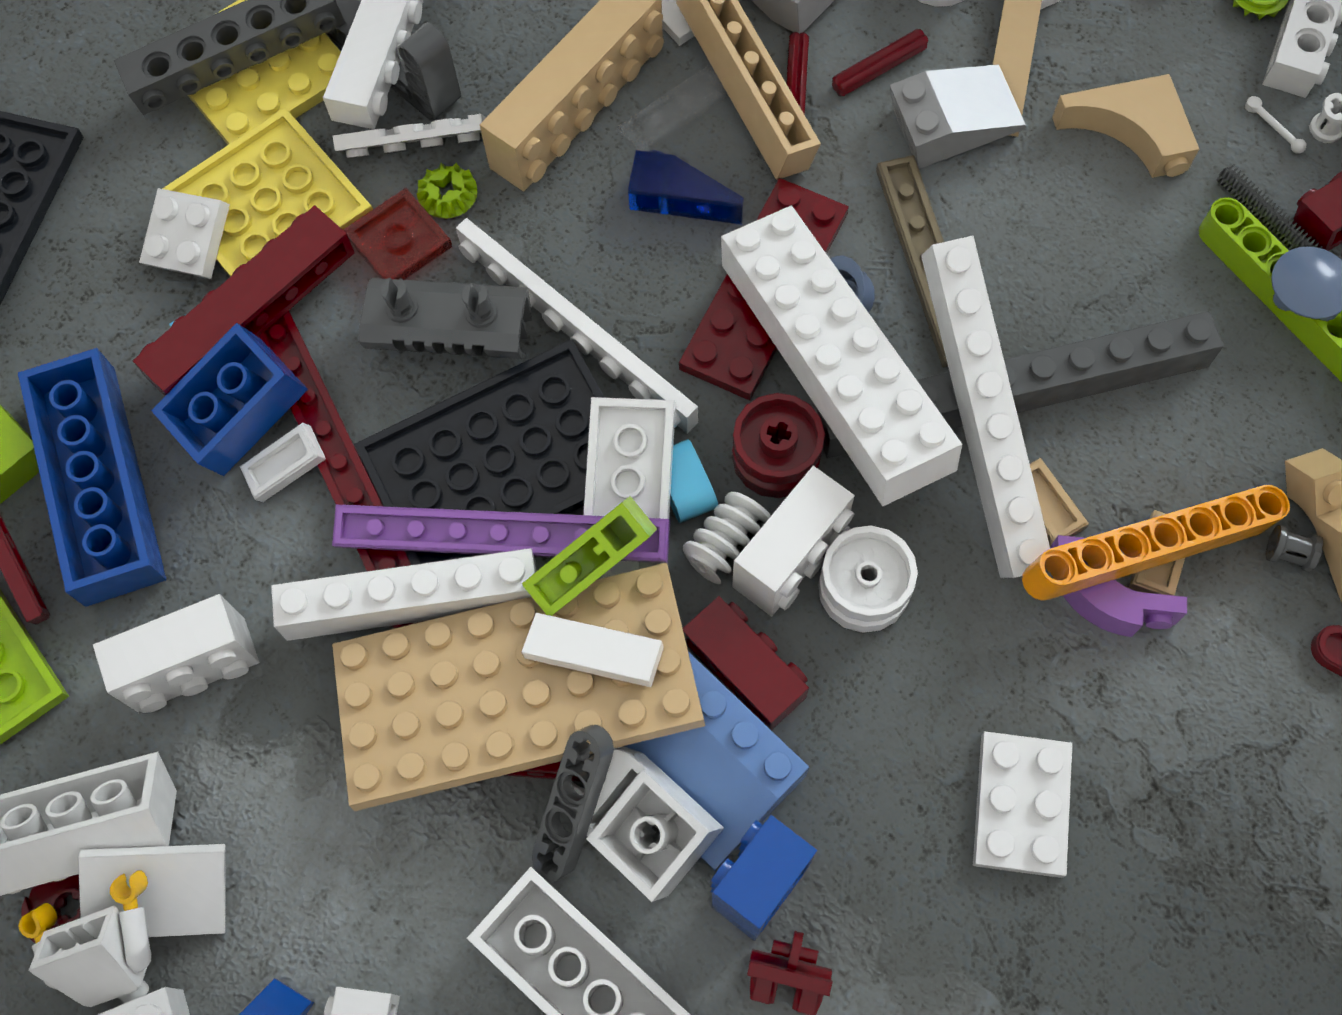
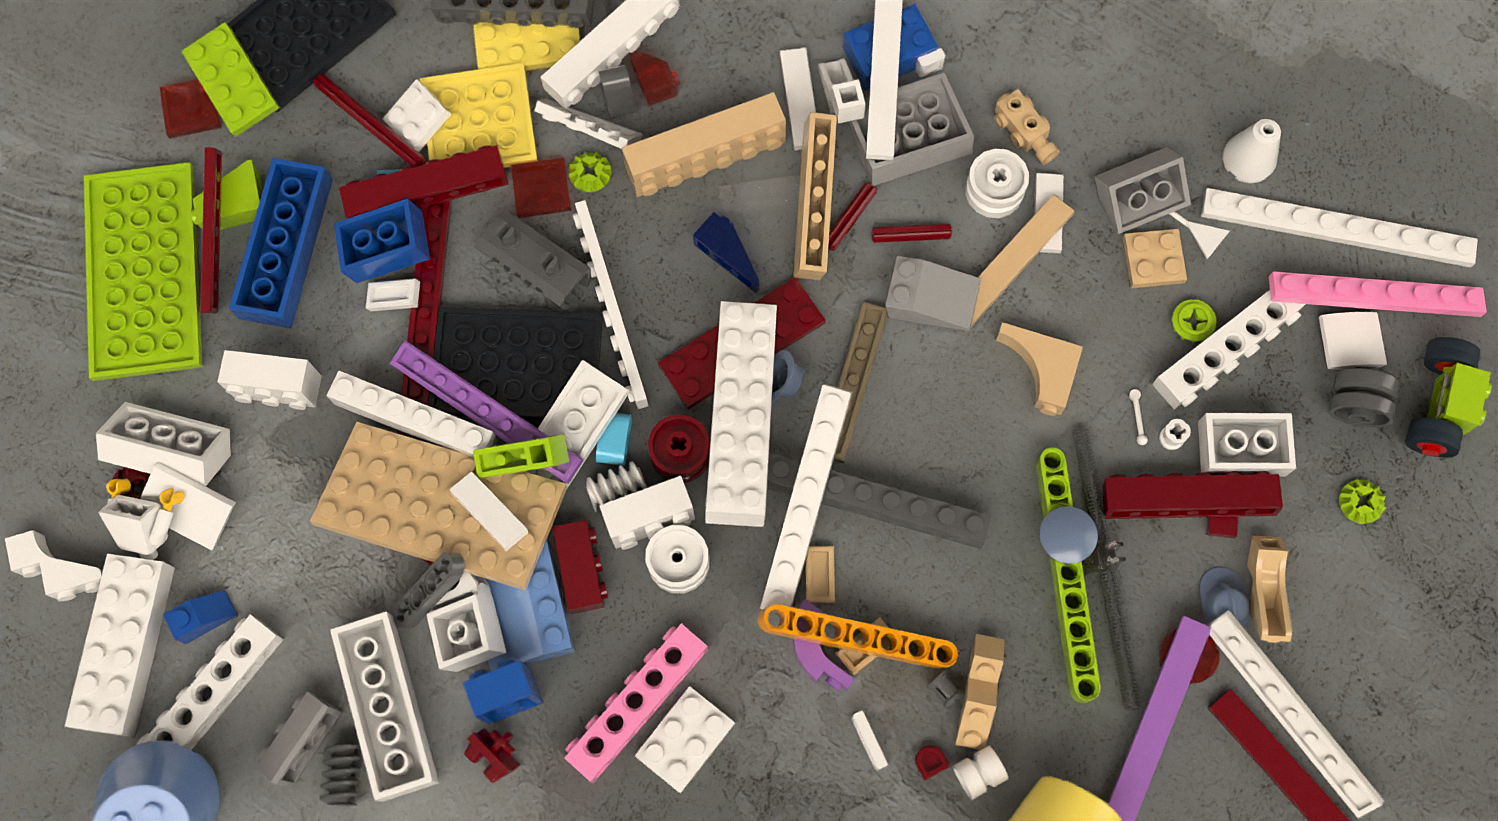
camera: 30 degrees right, 5 degrees up
(122, 270) = (369, 121): none -> dark red axle
(470, 44) = (654, 77): none -> clear red slope
(957, 684) = (578, 751): none -> bright pink brick
(1252, 665) = (869, 741): none -> white tile

